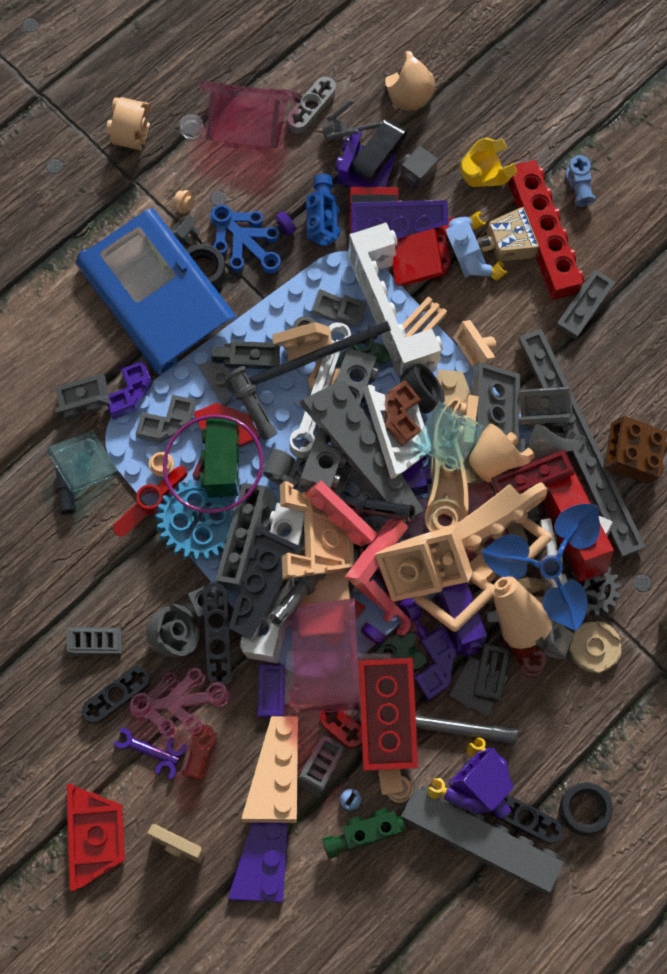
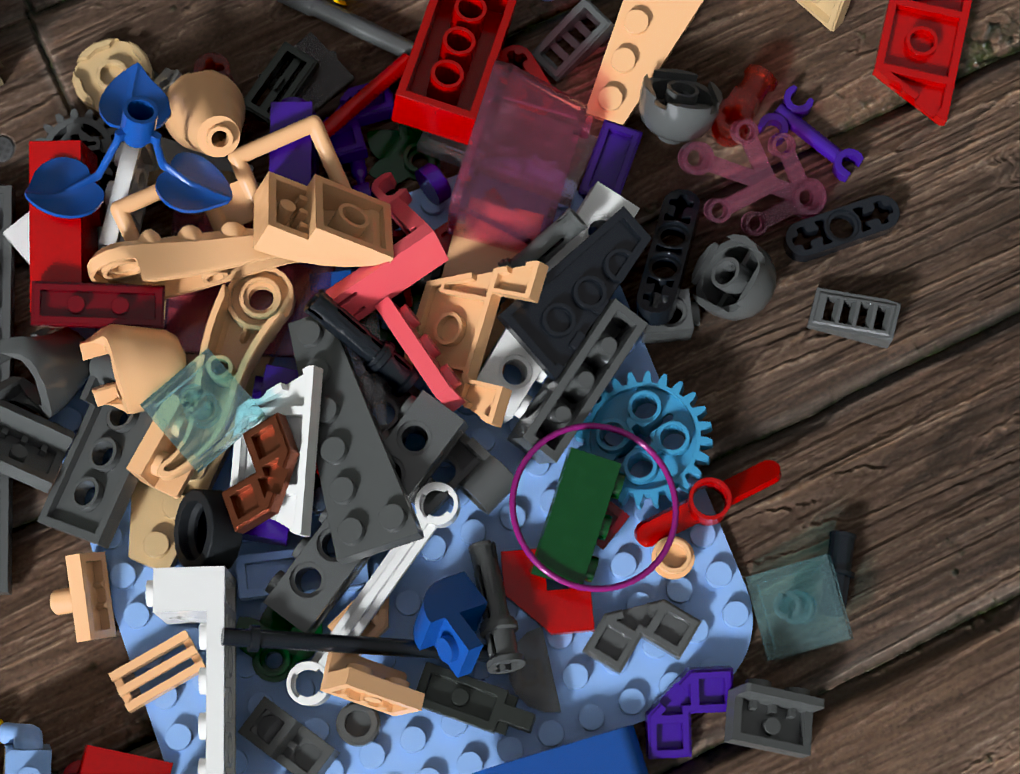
camera: 155 degrees left, 5 degrees up
(239, 734) = (678, 106): none -> dark grey cylinder
(278, 385) = (448, 622): none -> blue brick
(435, 677) = (366, 95): none -> red bar

